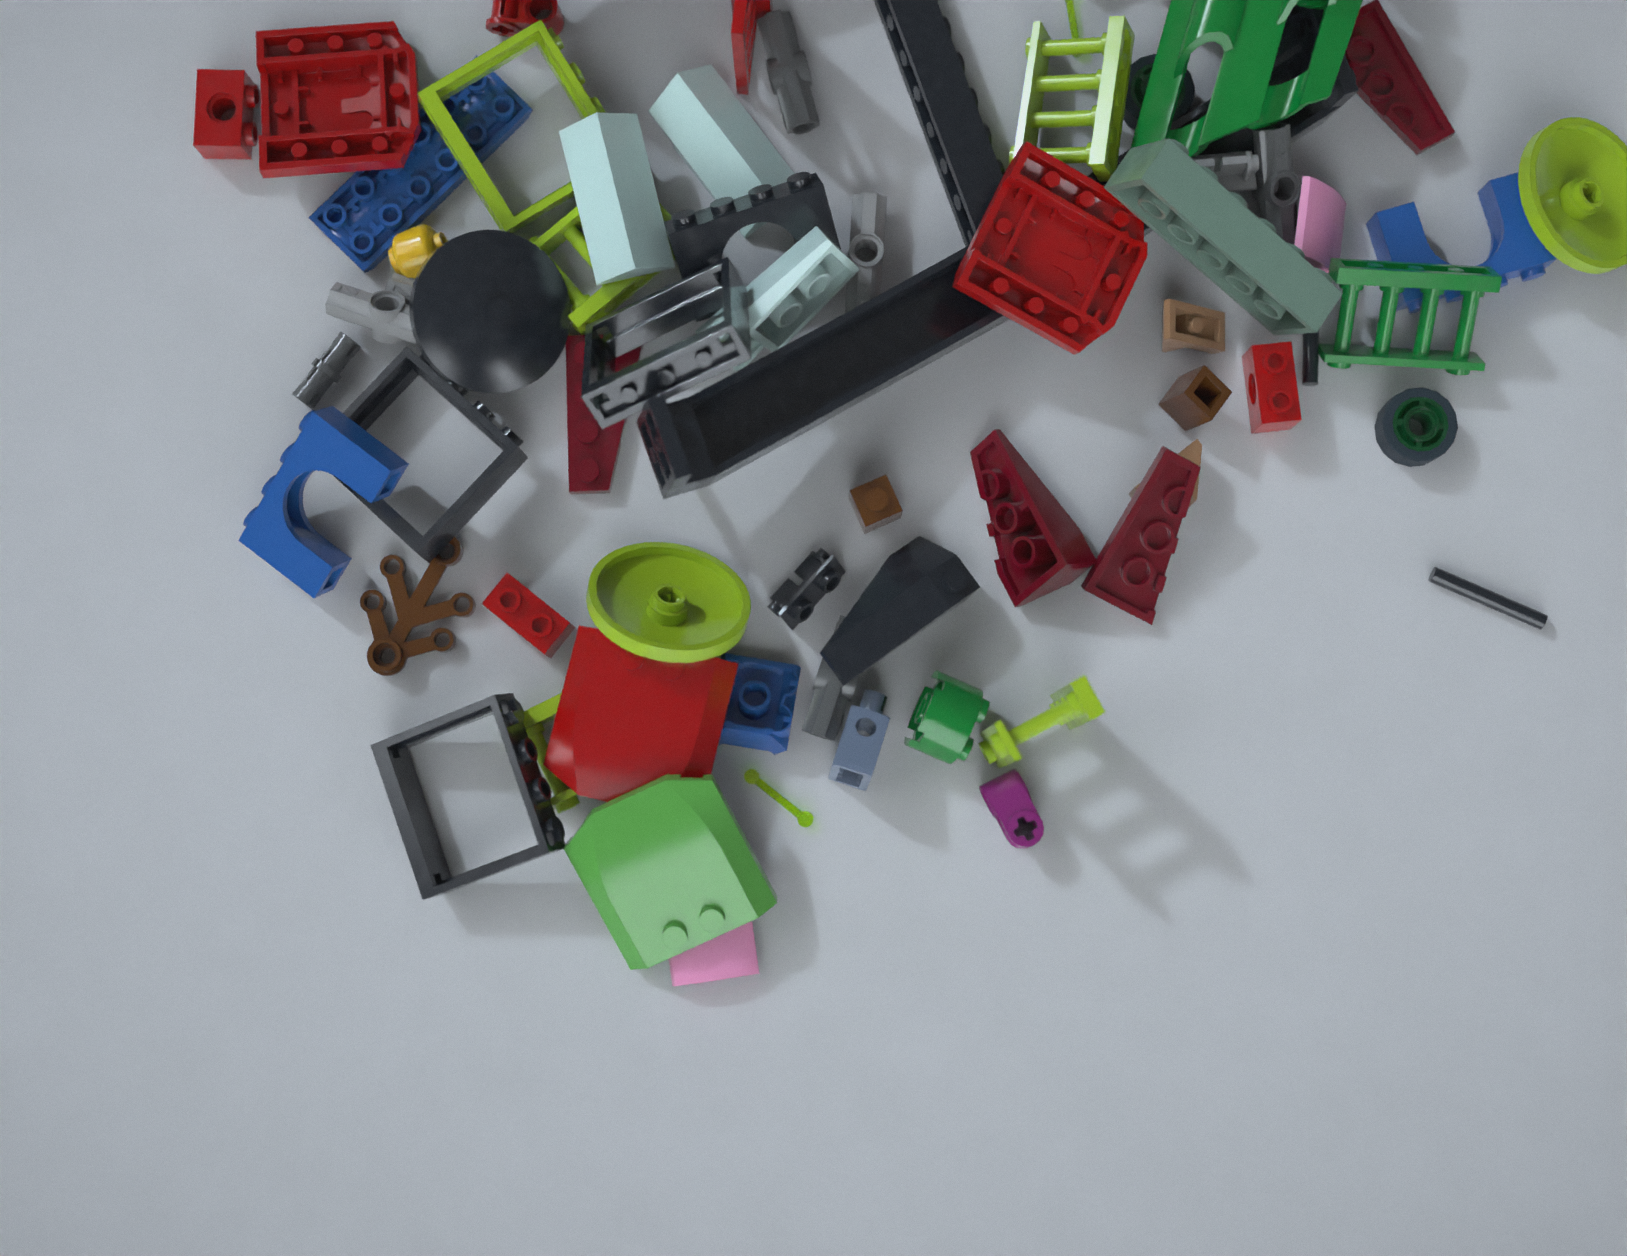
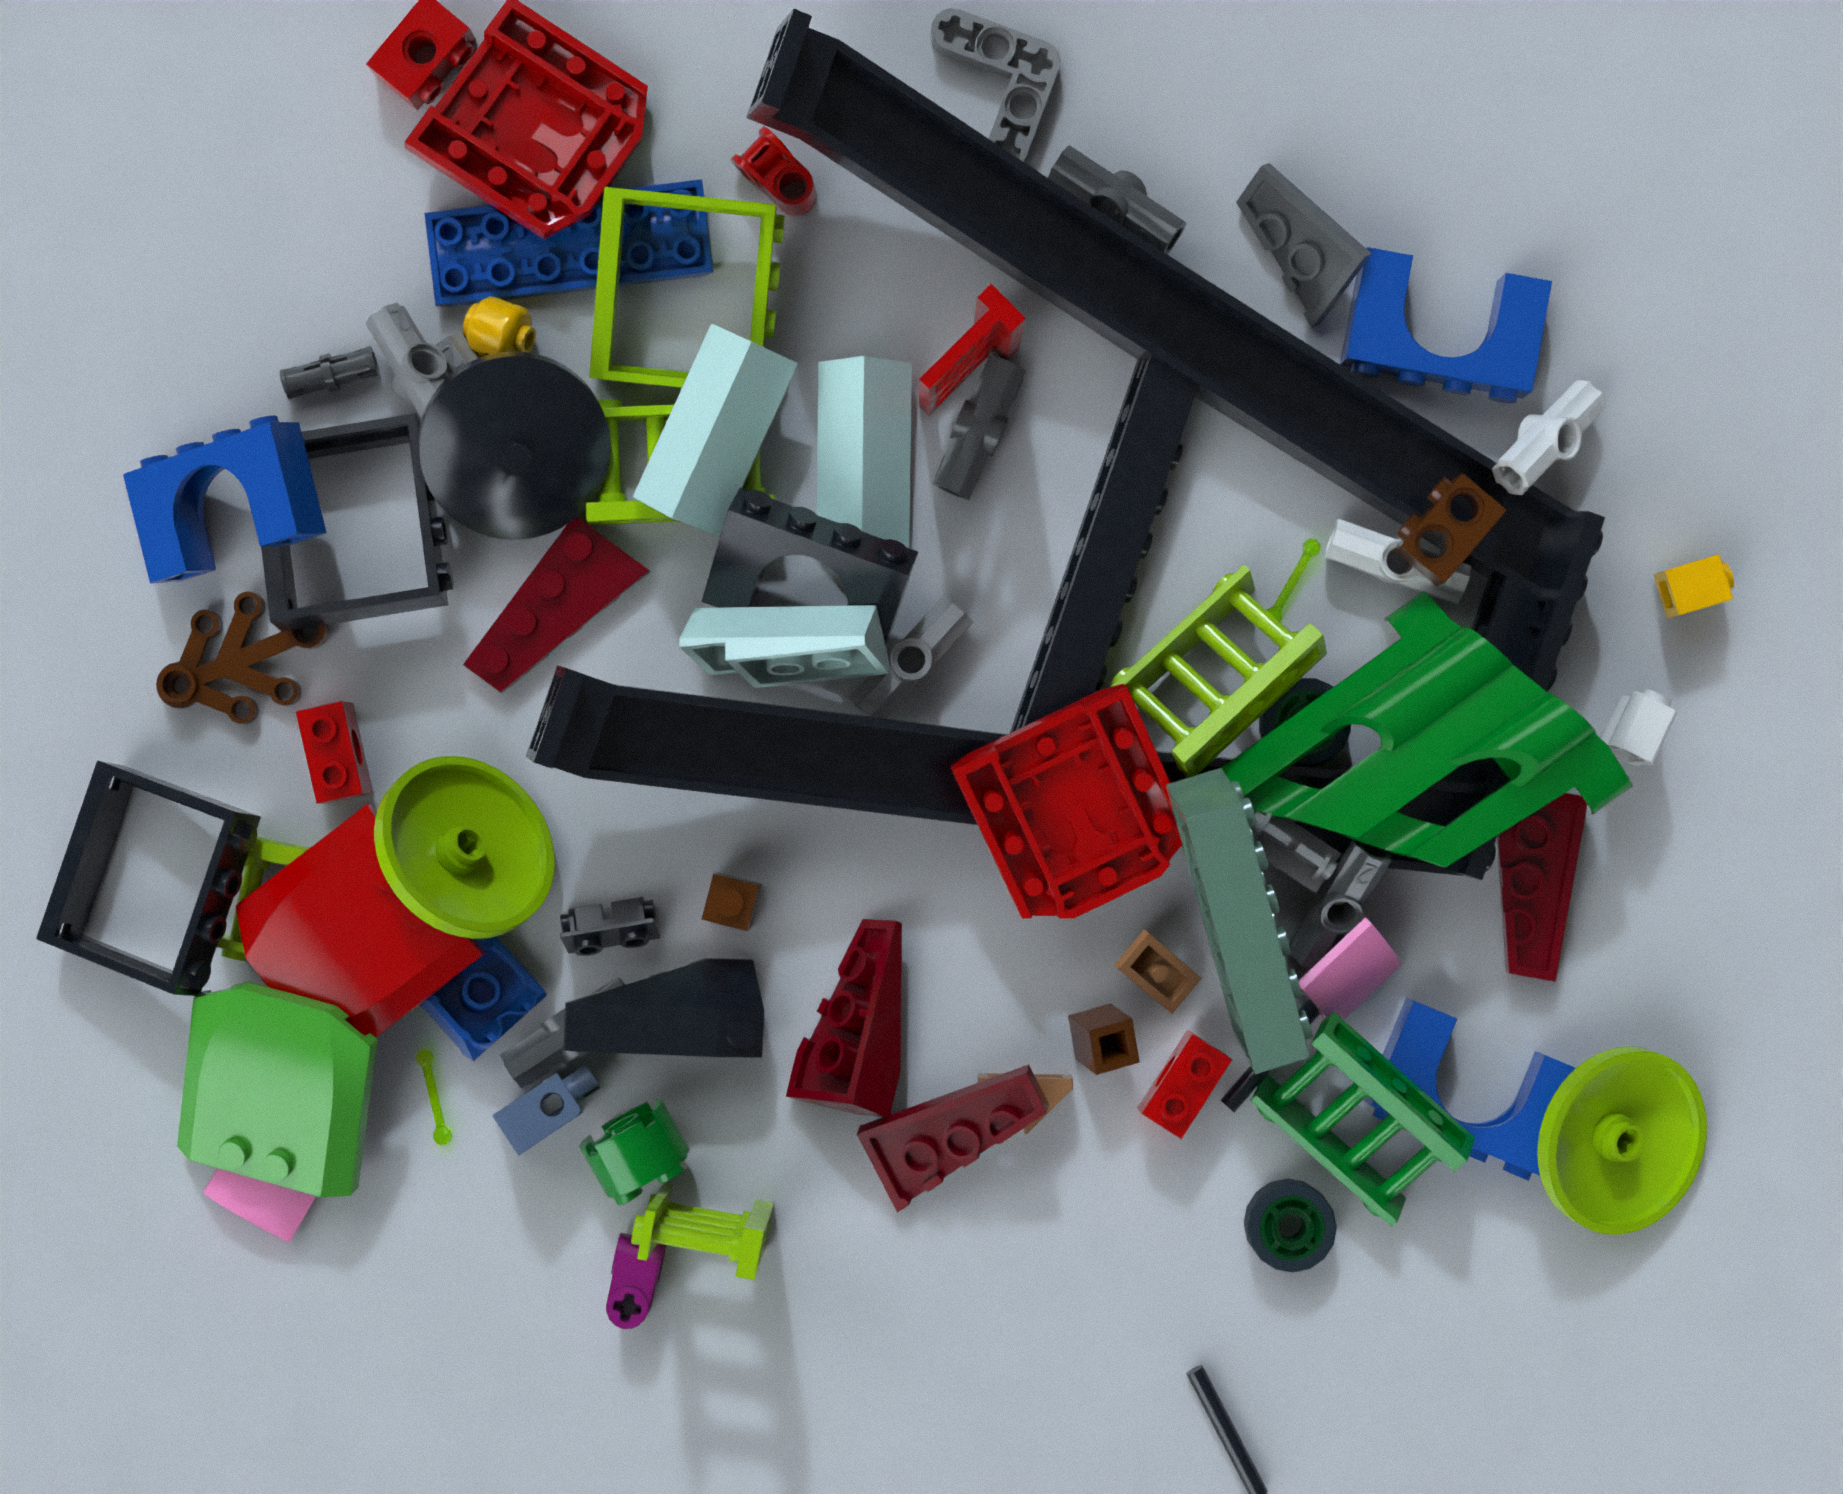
camera: 40 degrees right, 5 degrees up
(623, 393) = (629, 659): black window -> none

